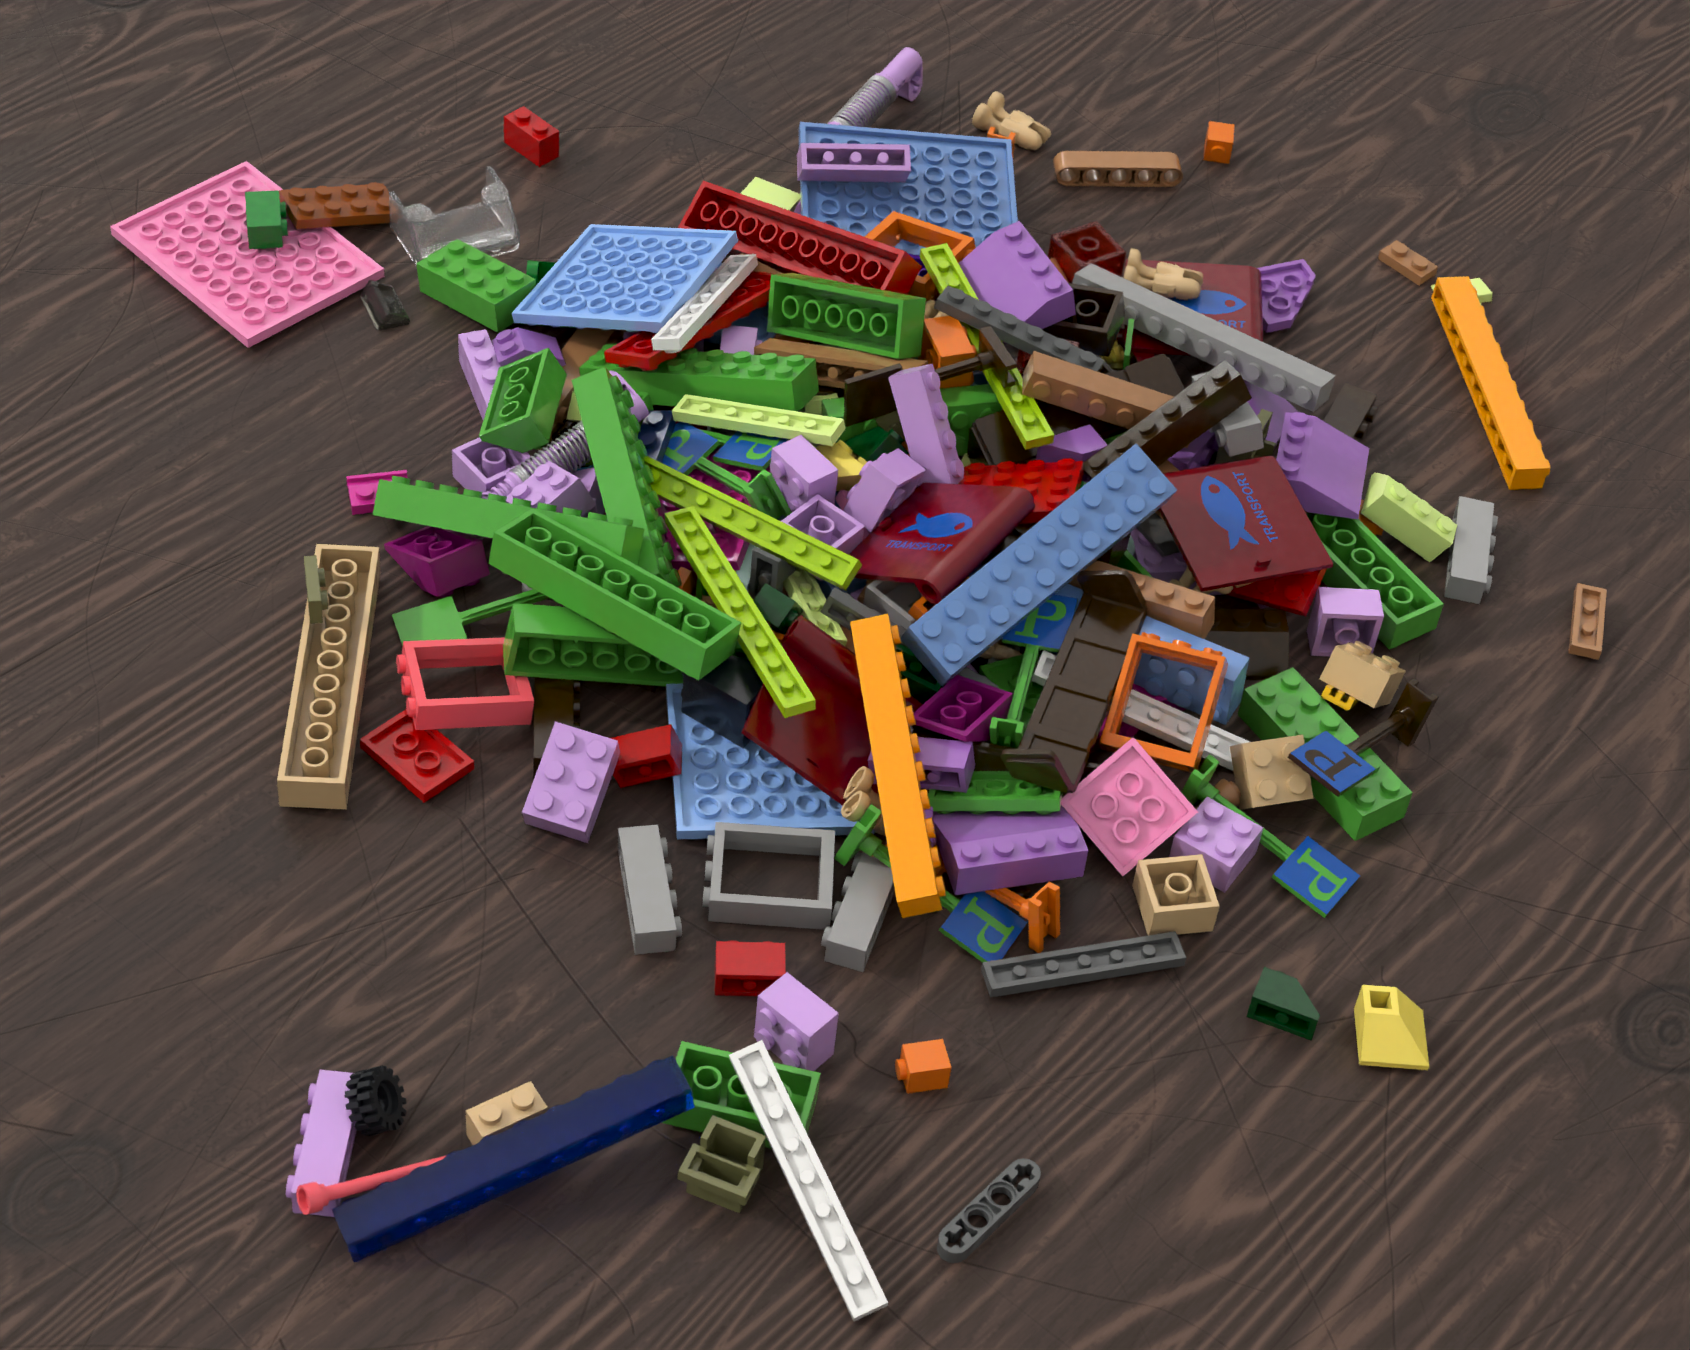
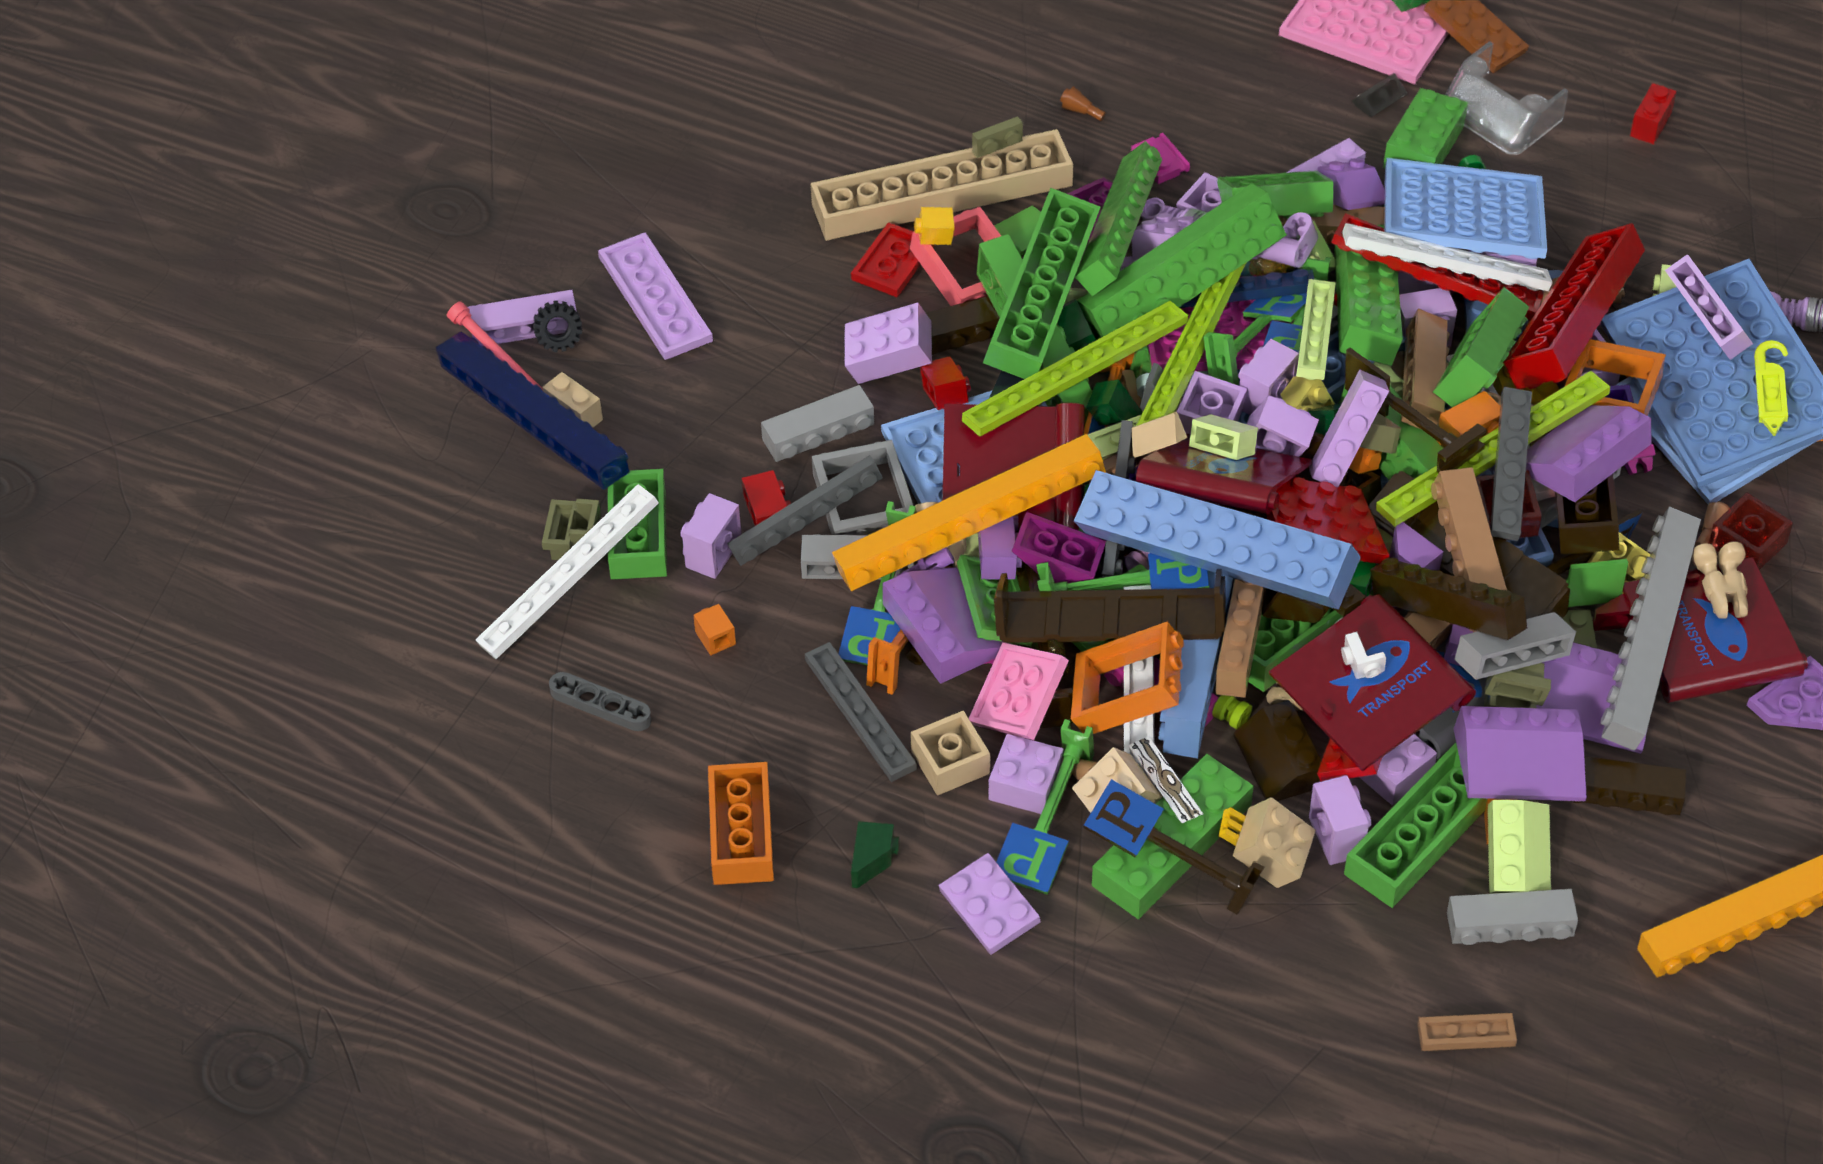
camera: 80 degrees right, 5 degrees up
(252, 530) = (1075, 101): none -> dark orange cone
(355, 995) = (655, 296): none -> lavender plate
(431, 678) = (935, 225): none -> yellow brick
(799, 909) = (805, 510): none -> dark grey plate
(872, 570) = (1157, 434): none -> tan slope
(888, 524) = (1223, 437): none -> yellowish green brick
(958, 168) = (1770, 388): none -> neon yellow plate
(1222, 1106) = (740, 823): none -> orange brick
(1223, 511) = (1361, 664): none -> white bracket
(1272, 727) = (1165, 779): none -> sticker
(1367, 924) = (989, 903): none -> lavender plate
(1389, 1029) = (871, 932): light yellow slope -> none

